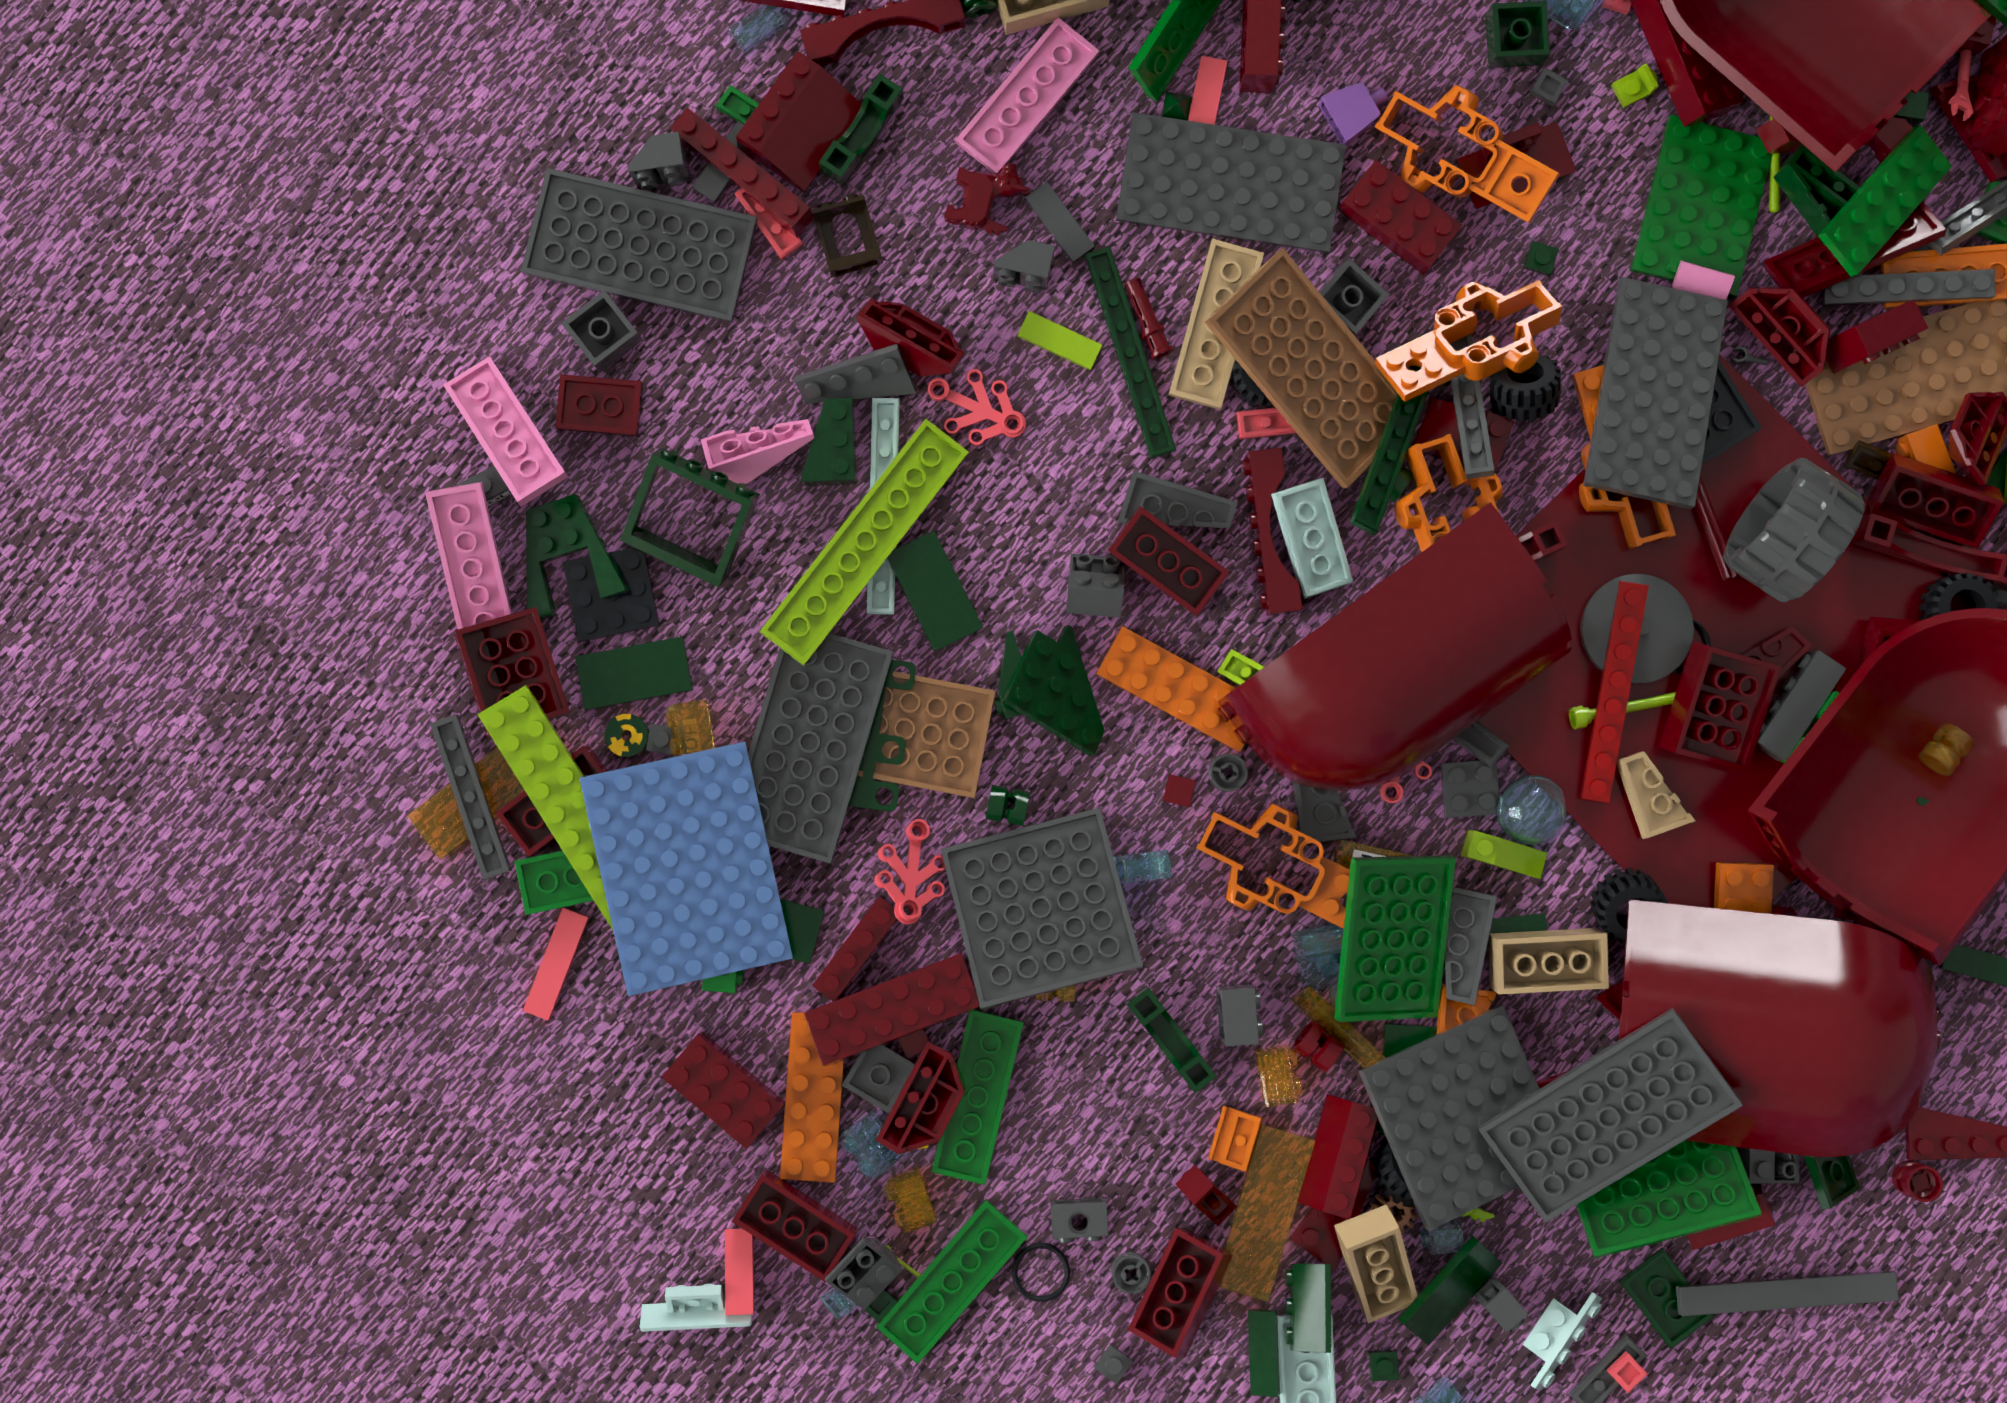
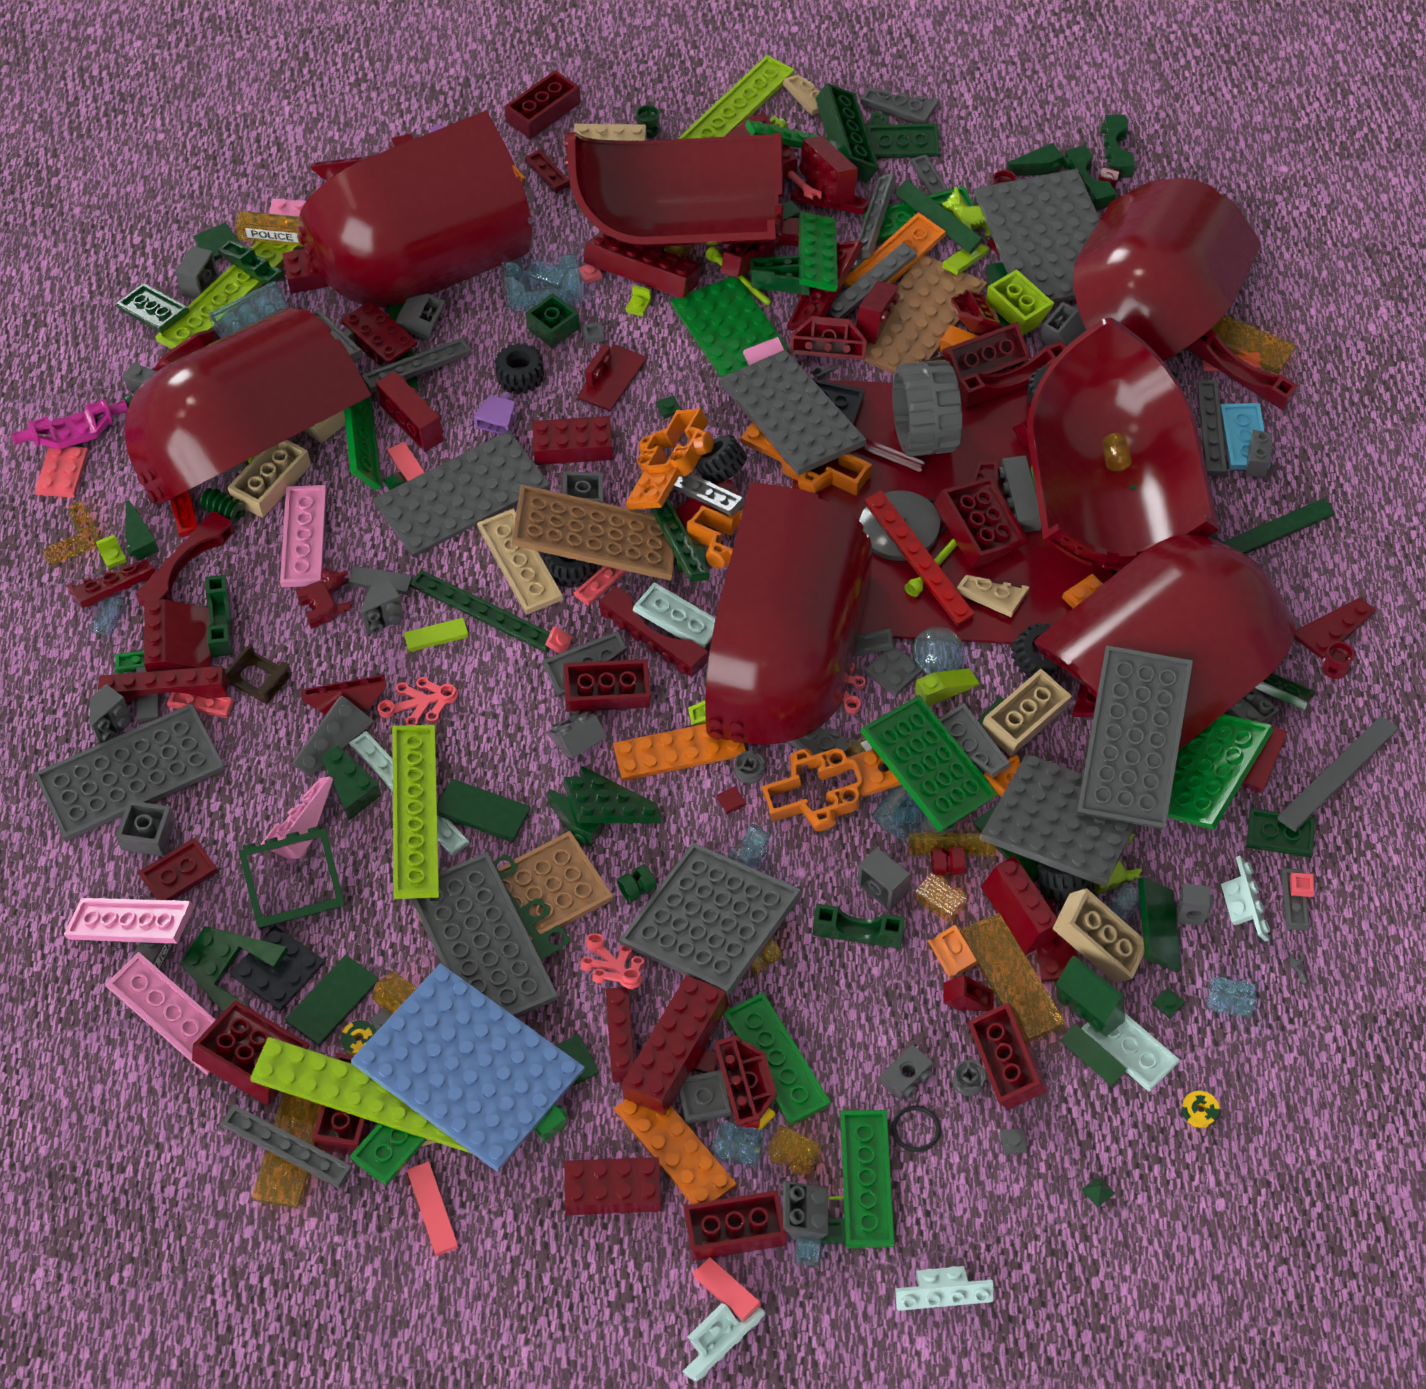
camera: 40 degrees left, 30 degrees down
(1152, 330) = (485, 589): dark red pin -> none
(1172, 459) = (558, 640): none -> coral plate
(1436, 50) = (519, 379): none -> black tyre
(1501, 171) = (606, 377): orange piece -> none

